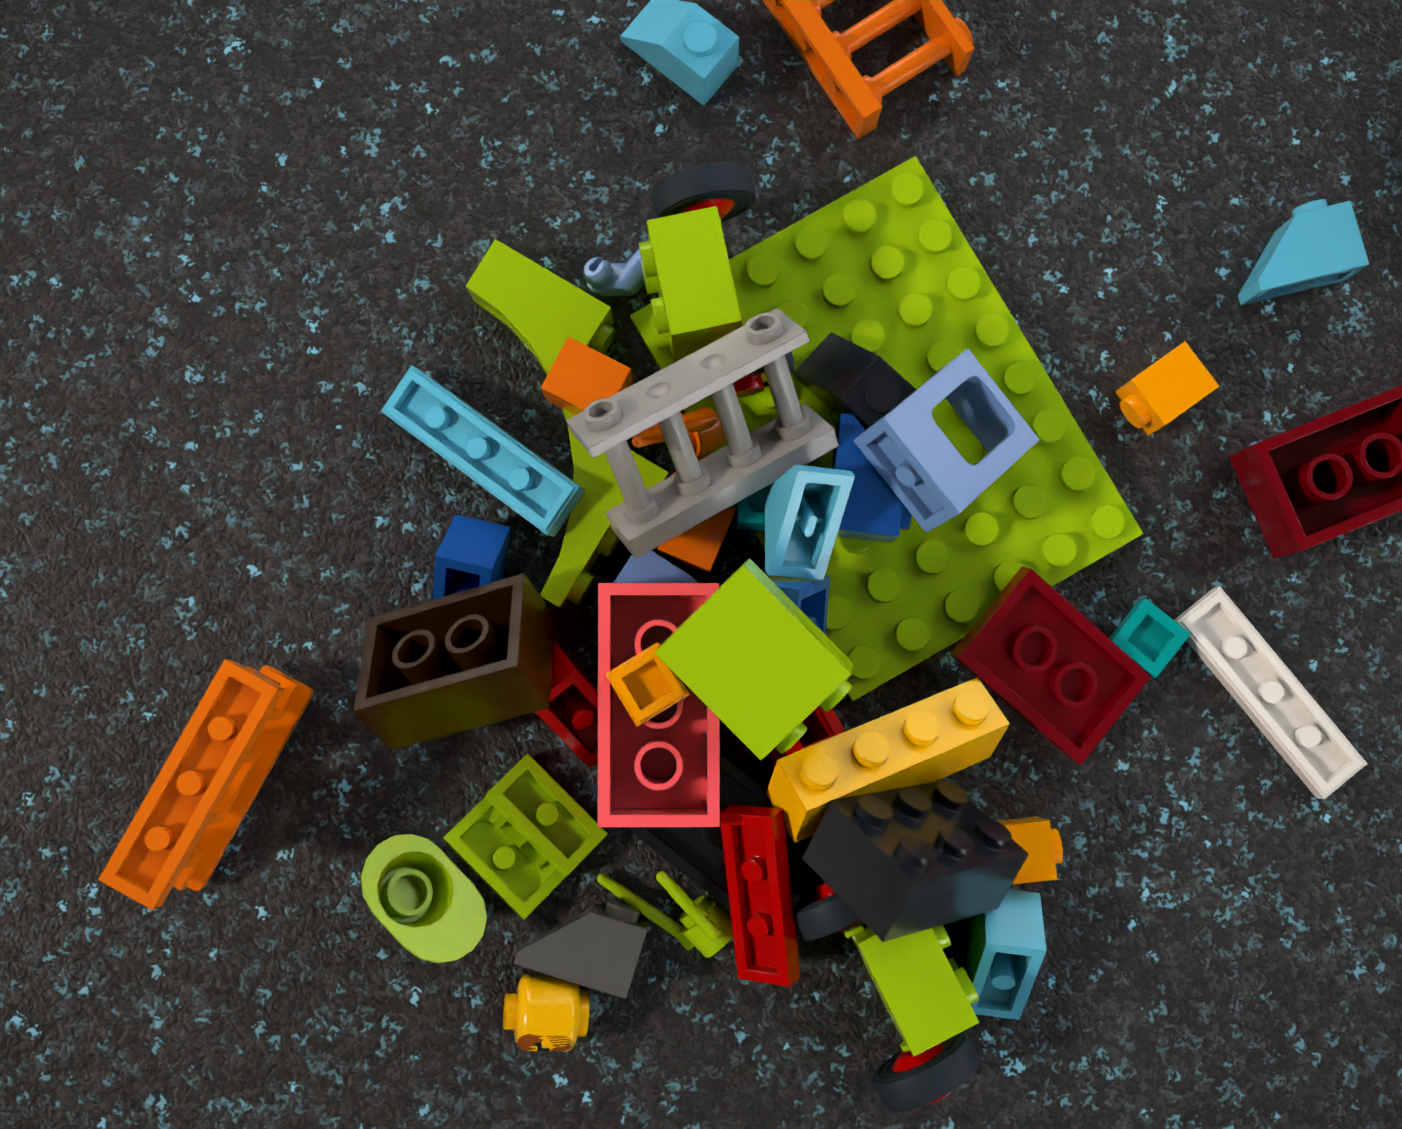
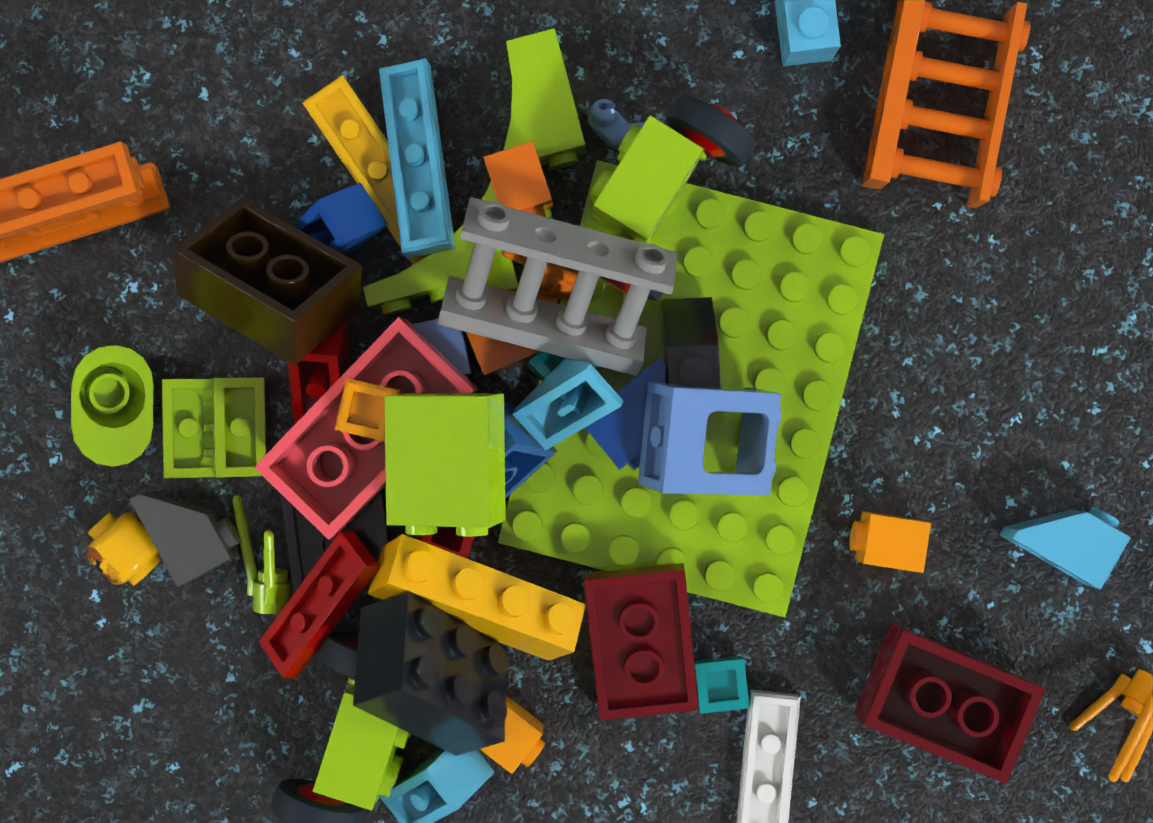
camera: 40 degrees right, 5 degrees up
(429, 490) = (358, 145): none -> yellow tile

